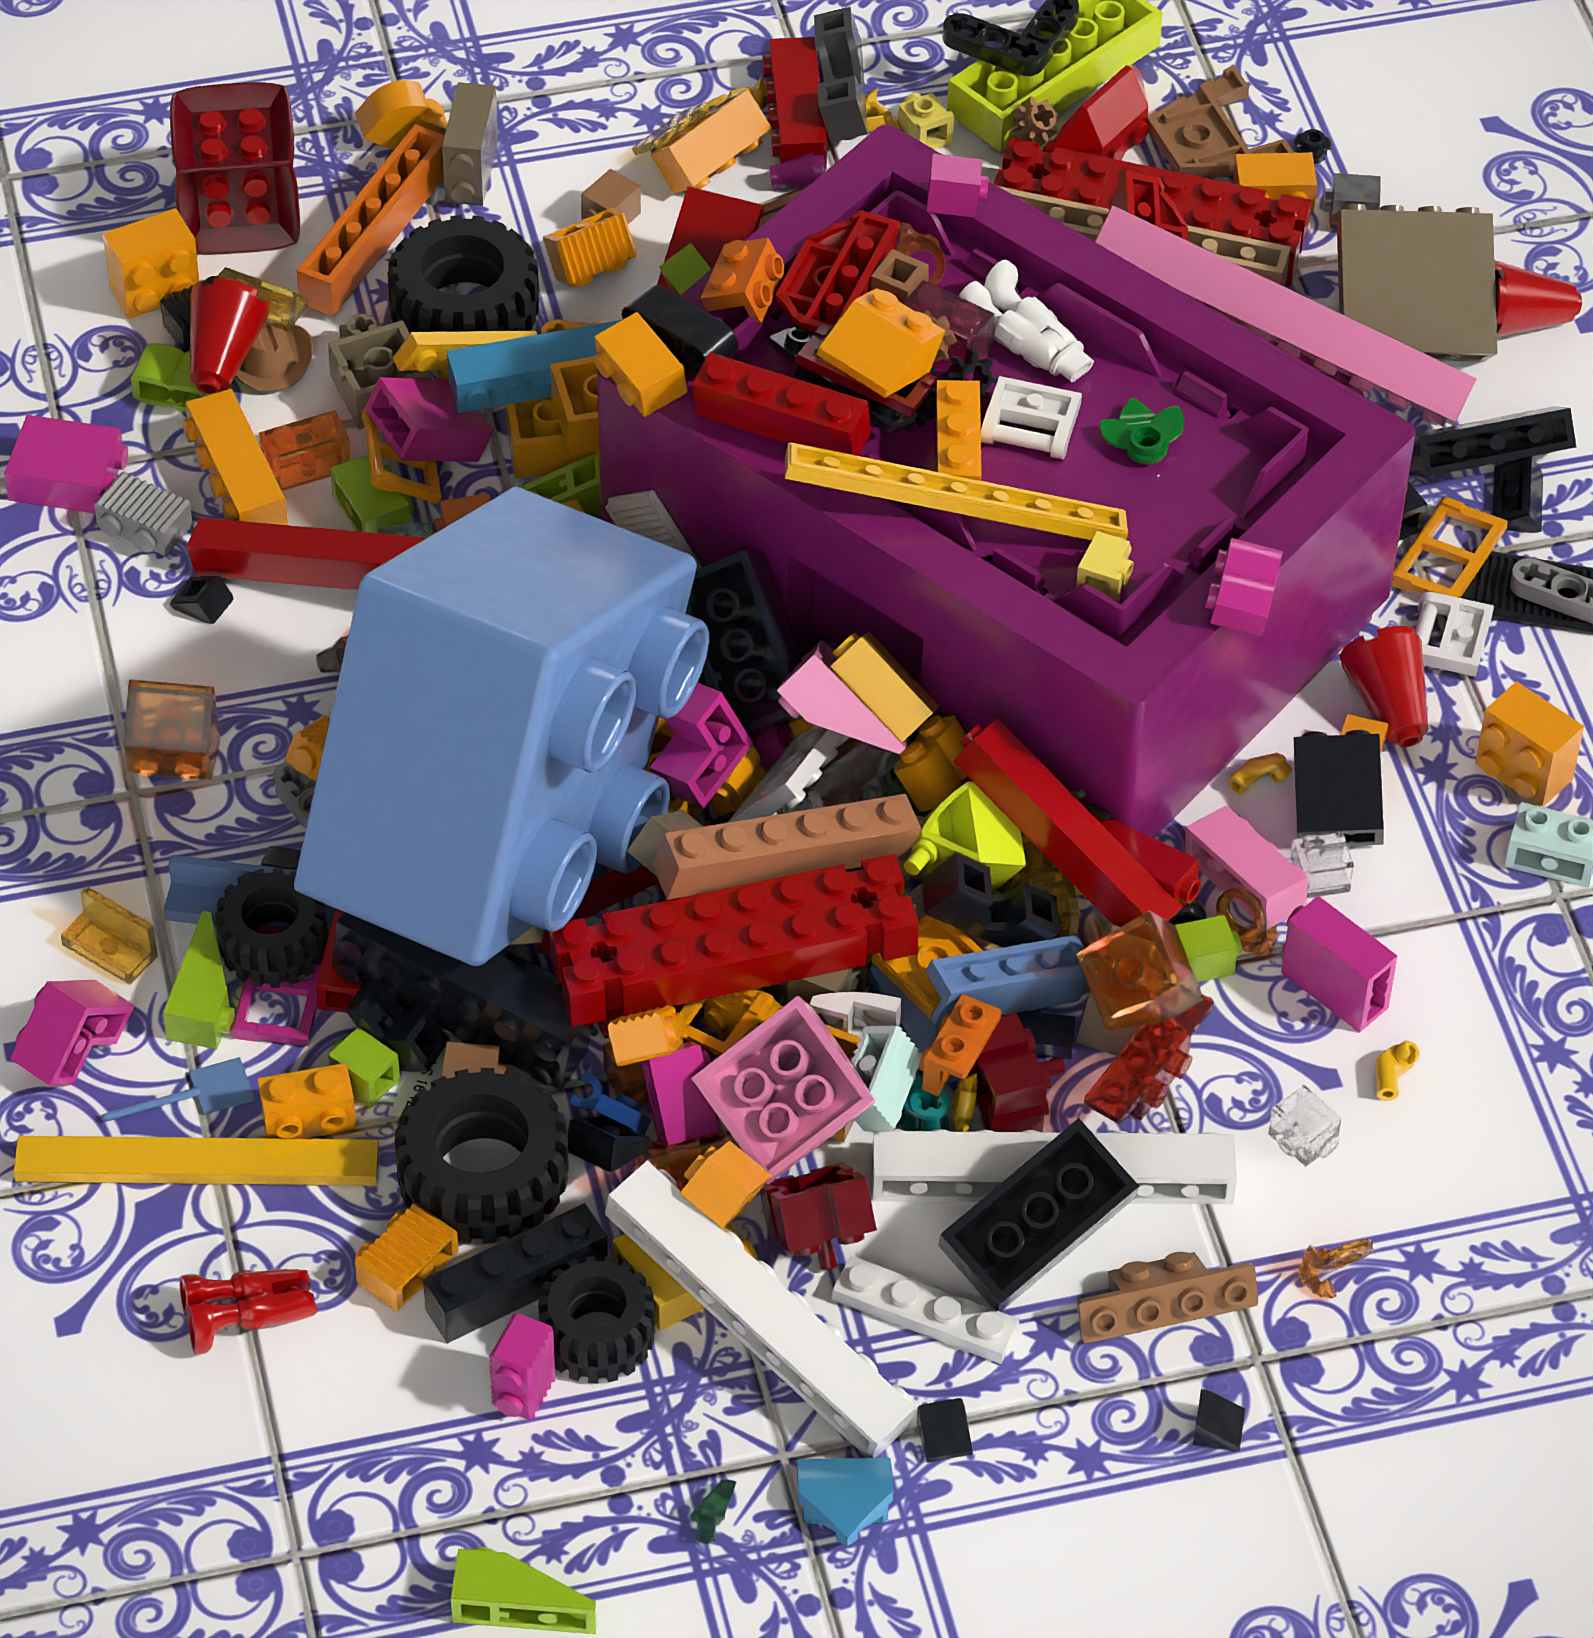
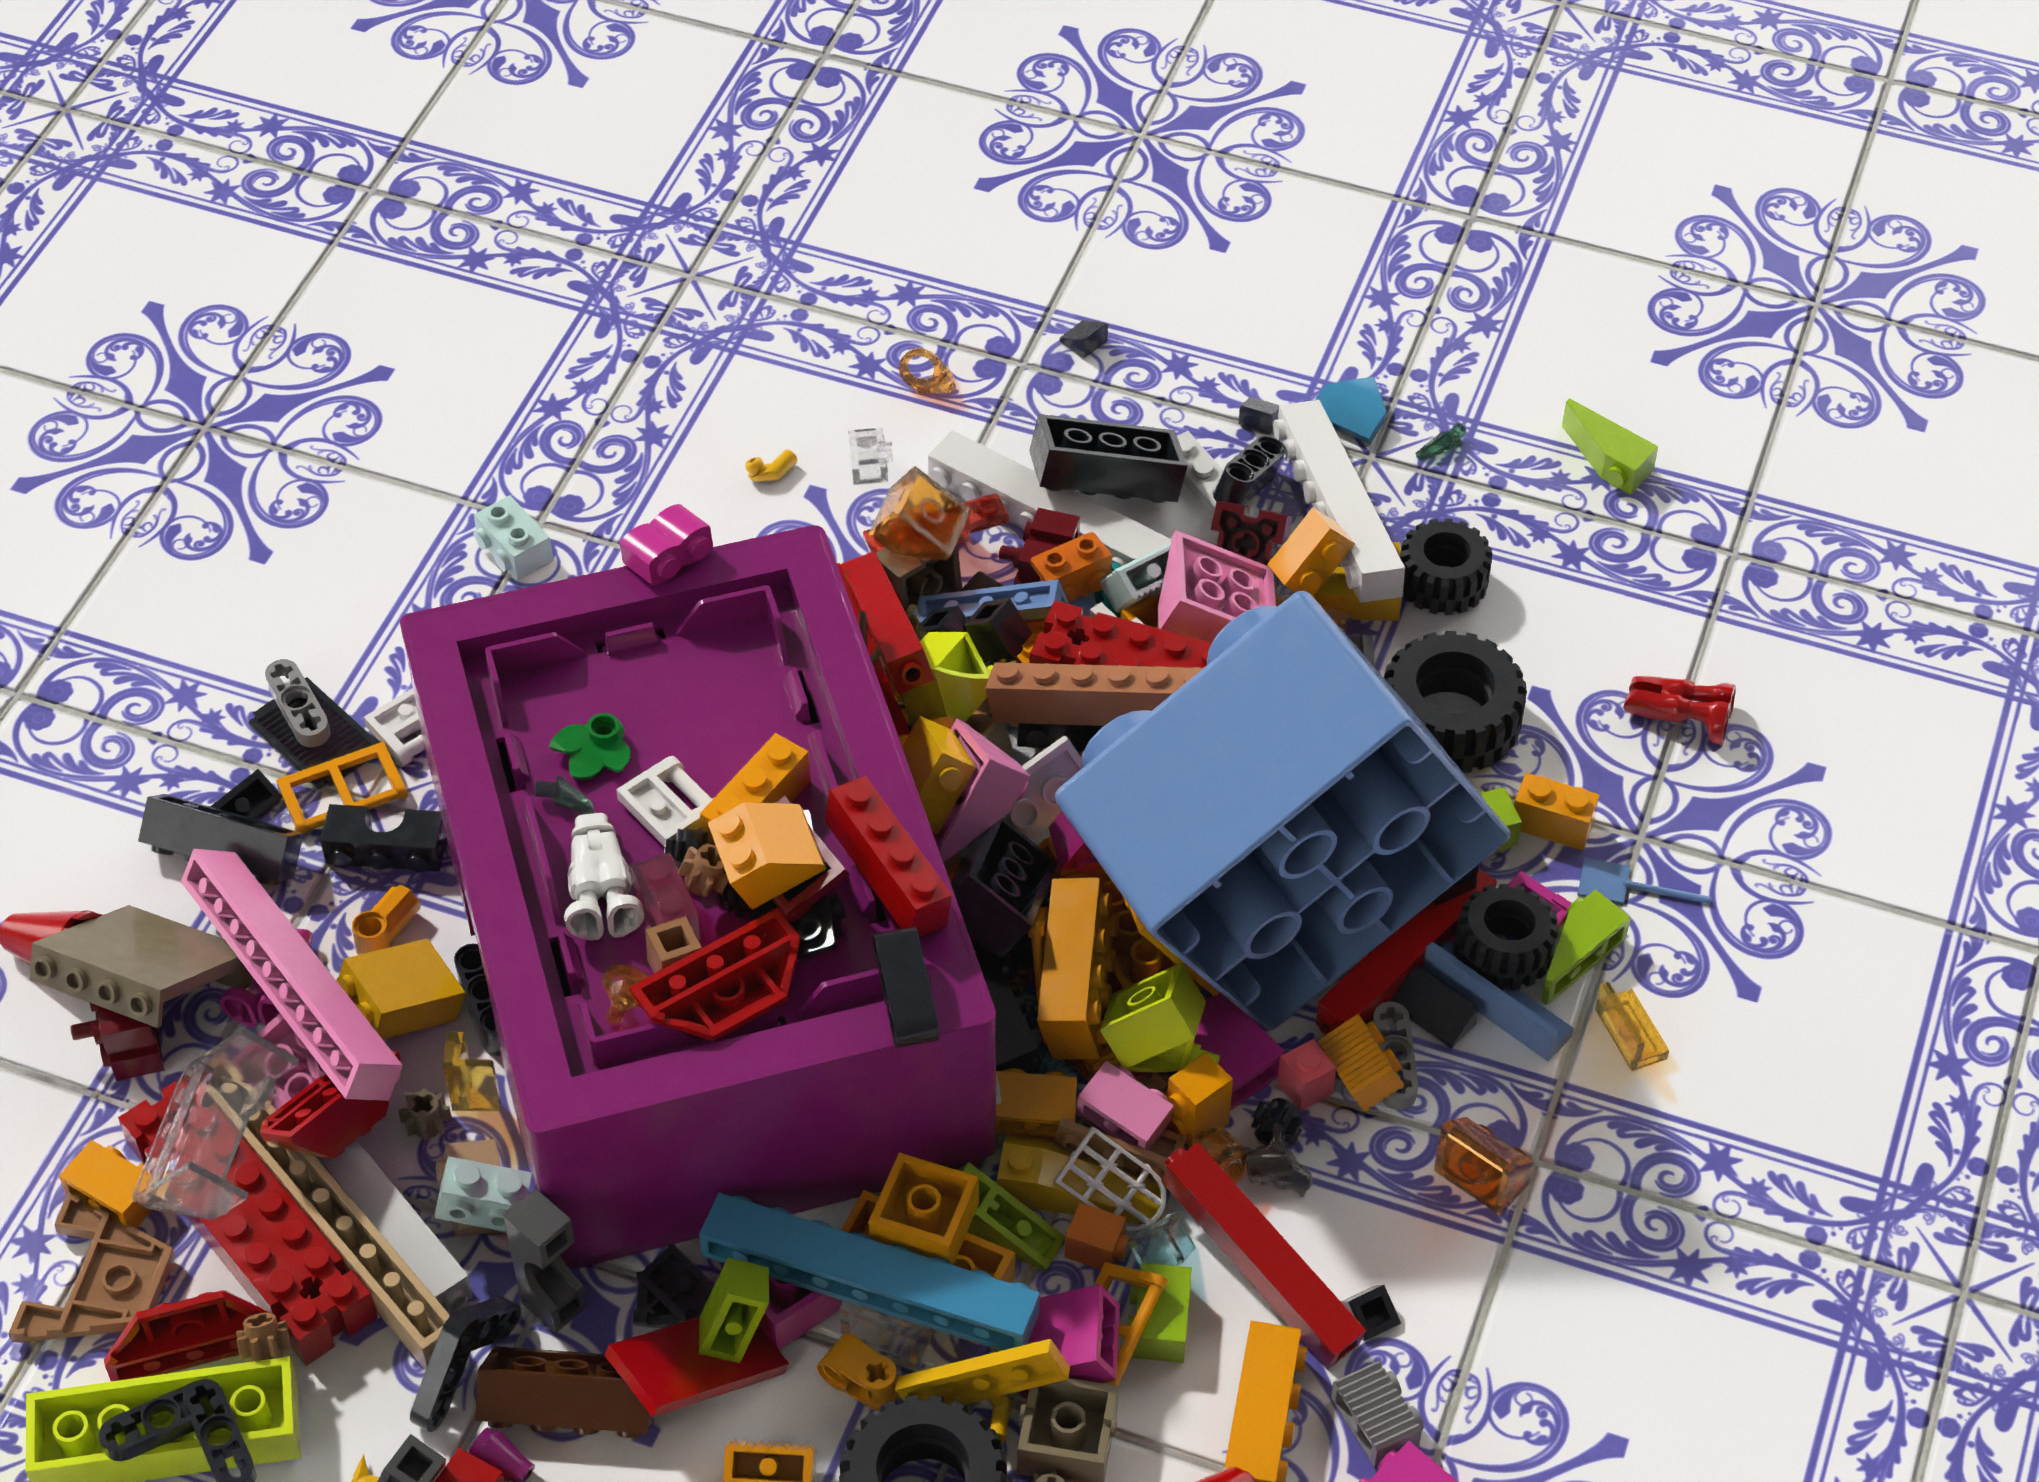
camera: 145 degrees left, 0 degrees up
(66, 1025) = (1704, 943): dark pink brick -> none
(196, 1160) = (1671, 834): yellow tile -> none
(305, 449) = (1188, 1393): clear orange brick -> none
(404, 1255) = (1554, 675): light orange brick -> none
(510, 1272) = (1515, 625): black brick -> none
(522, 1366) = (1520, 550): dark pink brick -> none
(639, 365) = (967, 972): light orange brick -> none
(745, 277) = (807, 1018): orange bracket -> none
(877, 1285) = (1250, 470): none -> black beam
(923, 113) = (336, 1445): light yellow brick -> none
(952, 493) = (812, 730): yellow tile -> none
(956, 185) = (549, 996): dark pink brick -> none
(1106, 565) = (739, 645): light yellow brick -> none
(1124, 381) = (564, 795): none -> bar
(1165, 1295) = (1042, 402): medium nougat bracket -> none
(1208, 176) = (206, 1124): none -> clear windscreen
(1315, 142) = (34, 1226): black plate -> none
(1338, 963) = (748, 501): dark pink brick -> none
(1352, 190) = (67, 1125): flat silver brick -> none
(1529, 744) = (461, 570): light orange brick -> none

